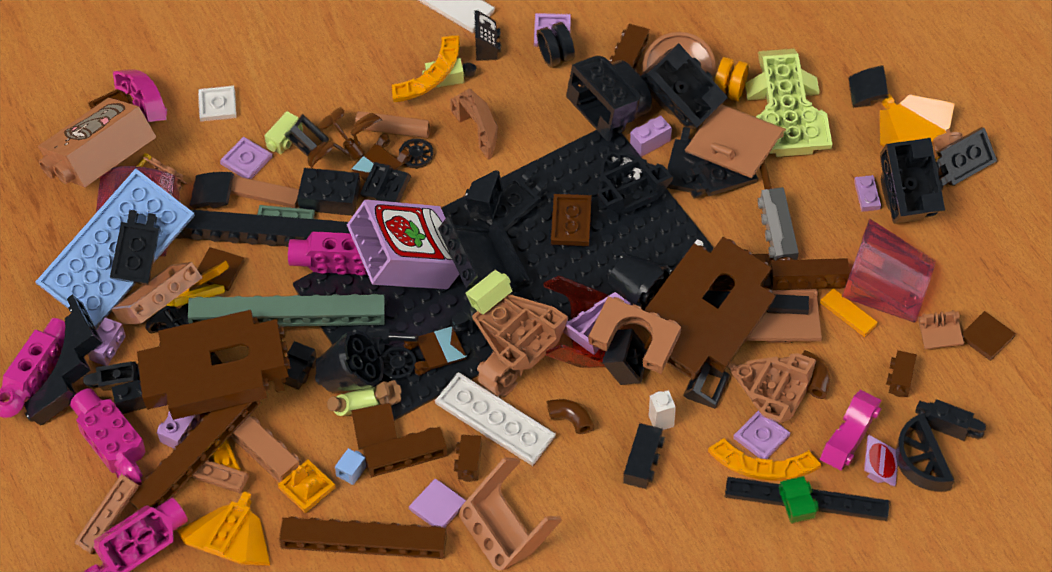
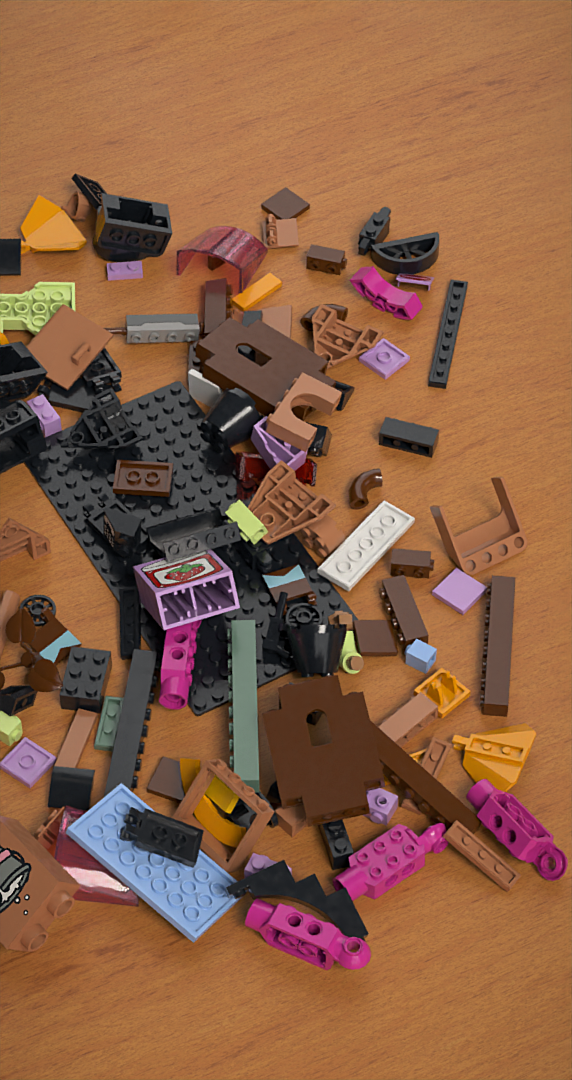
camera: 90 degrees left, 5 degrees down
(113, 375) = (314, 854): black hinge -> none
(385, 183) = (80, 630): black slope -> none
(662, 410) = (366, 416): white brick -> none
(763, 468) = (418, 361): light orange tile -> none
(797, 499) = (456, 331): green brick -> none

